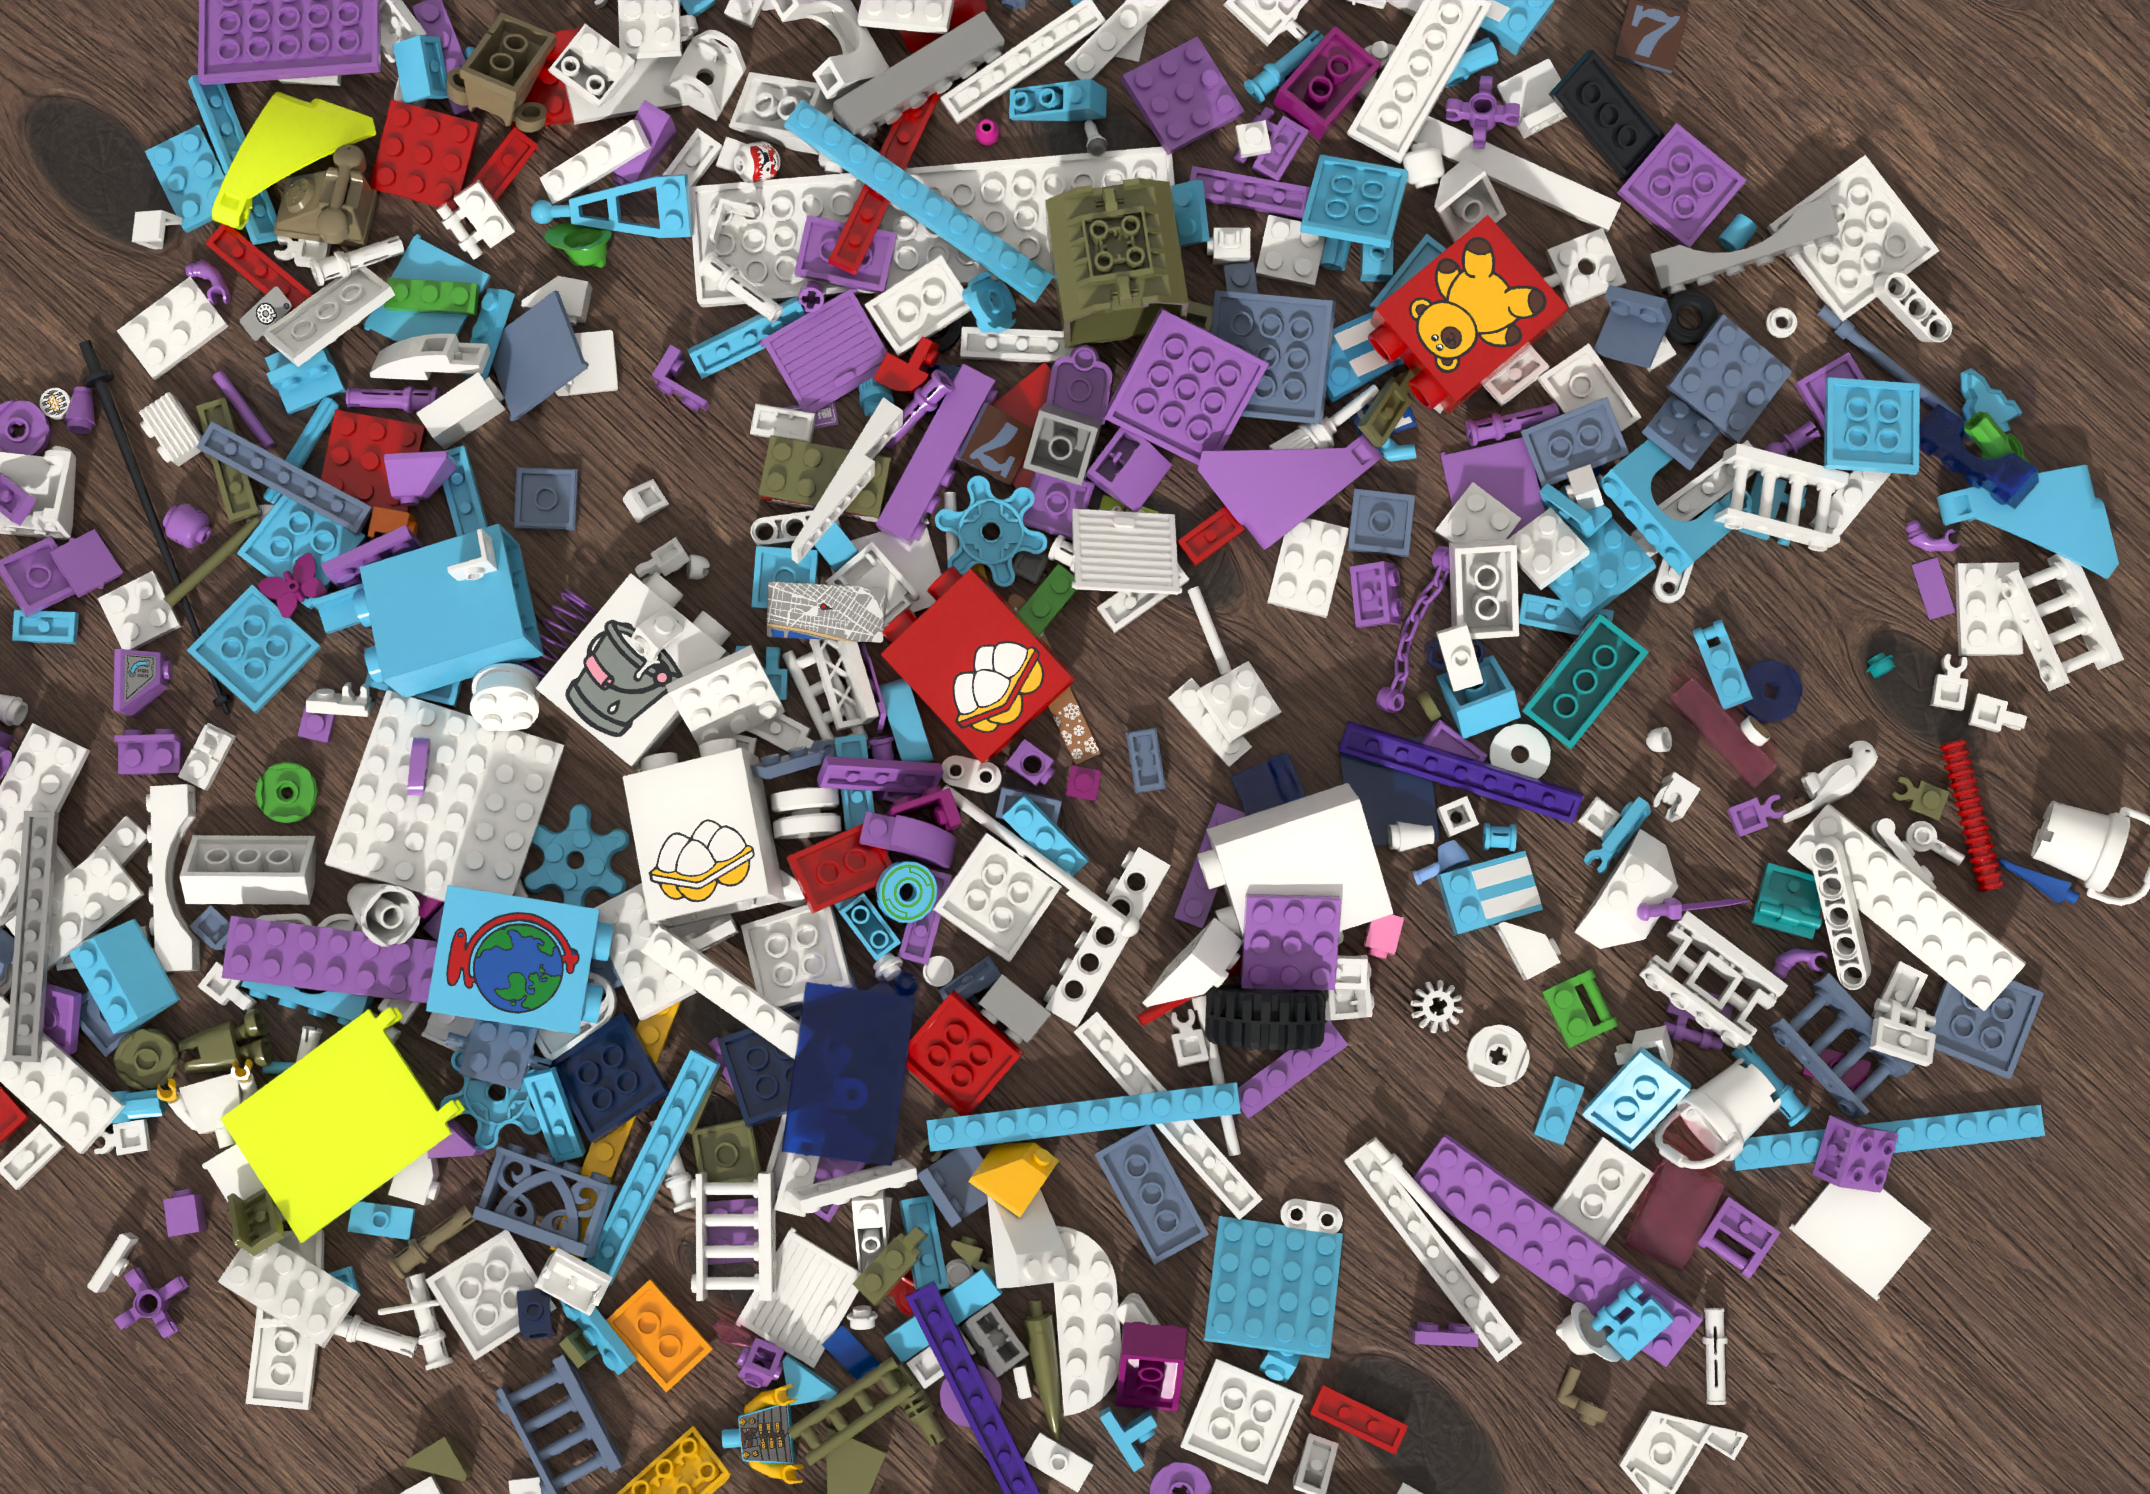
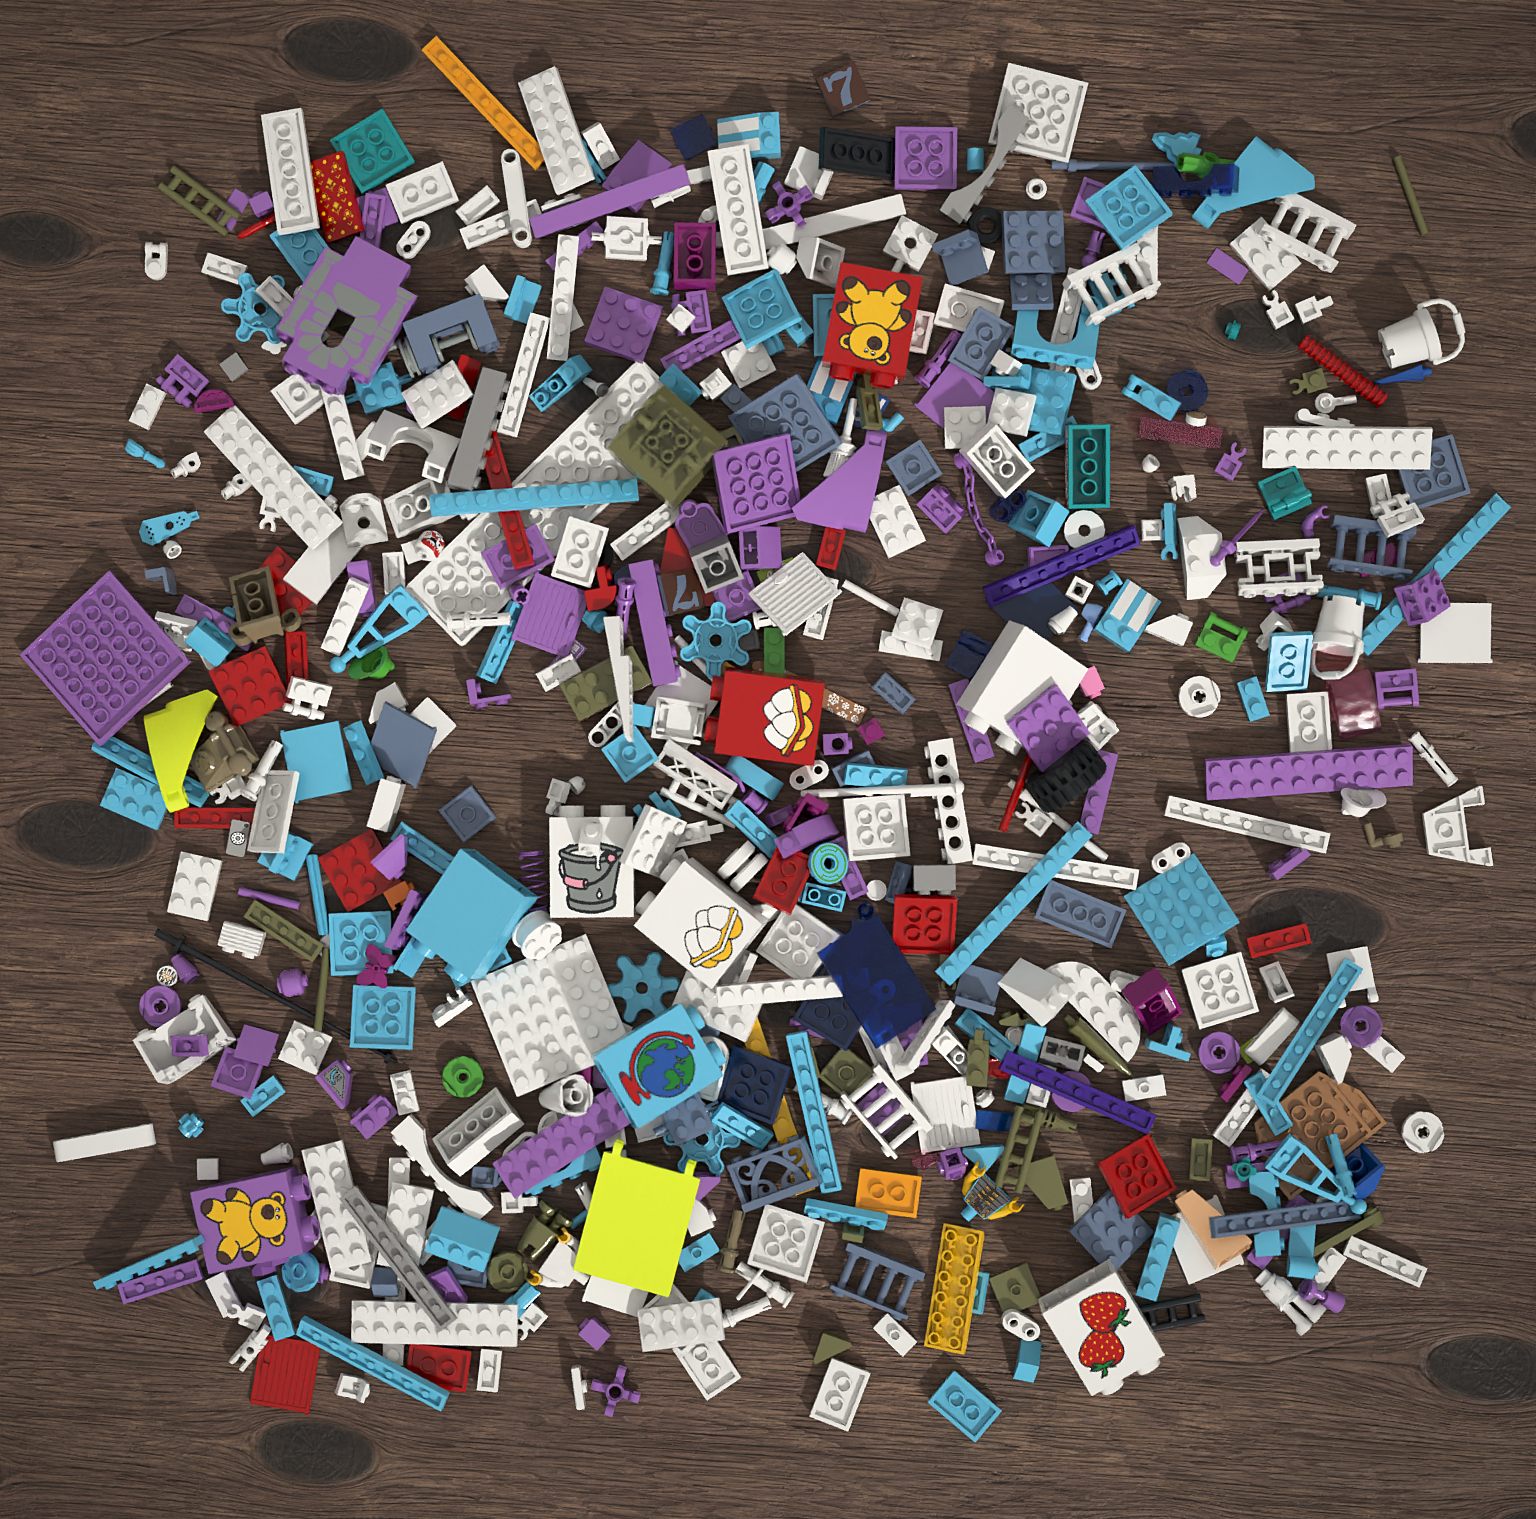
camera: 45 degrees left, 5 degrees up
(150, 227) = (140, 843): white panel -> none
(206, 271) = (187, 841): medium lavender piece -> none
(255, 1221) = (636, 1306): olive bracket -> none
(285, 478) = (324, 916): sand blue plate -> none
(317, 726) = (448, 1030): medium lavender plate -> none
(407, 399) = (351, 821): medium lavender pin -> none
(418, 766) = (523, 1007): medium lavender beam -> none
(430, 353) = (342, 791): white slope -> none
(433, 296) = (319, 756): bright green plate -> none
(477, 567) = (470, 882): white bracket -> none
(534, 1314) = (816, 1233): dark blue bracket -> none
(573, 1281) = (823, 1201): white hinge -> none
(593, 66) = (303, 567): white slope -> none
(645, 500) = (520, 772): white slope -> none
(717, 217) = (434, 592): white bracket -> none
(796, 760) = (715, 843): sand blue hinge -> none
(825, 612) = (665, 753): light grey sticker -> none
(878, 775) = (764, 815): medium lavender plate -> none
(888, 967) = (849, 909): white plate -> none
(987, 138) = (538, 433): dark pink hose -> none
(990, 303) = (615, 520): medium azure plate -> none
(1014, 1174) = (1002, 961): yellow slope -> none
(1197, 965) = (1009, 779): white slope -> none
(1393, 1165) = (1192, 797): white bar -> none
(1429, 706) = (1017, 544): olive tile -> none
(1446, 1011) = (1141, 699): white gear -> none
(1459, 657) = (1013, 506): white plate -> none
(1636, 1329) = (1383, 776): medium azure plate -> none
(1836, 779) = (1258, 409): white animal -> none
(1837, 927) = (1319, 487): white beam -> none
(1922, 540) = (1199, 246): medium lavender piece -> none
(1925, 312) = (1108, 125): white beam -> none

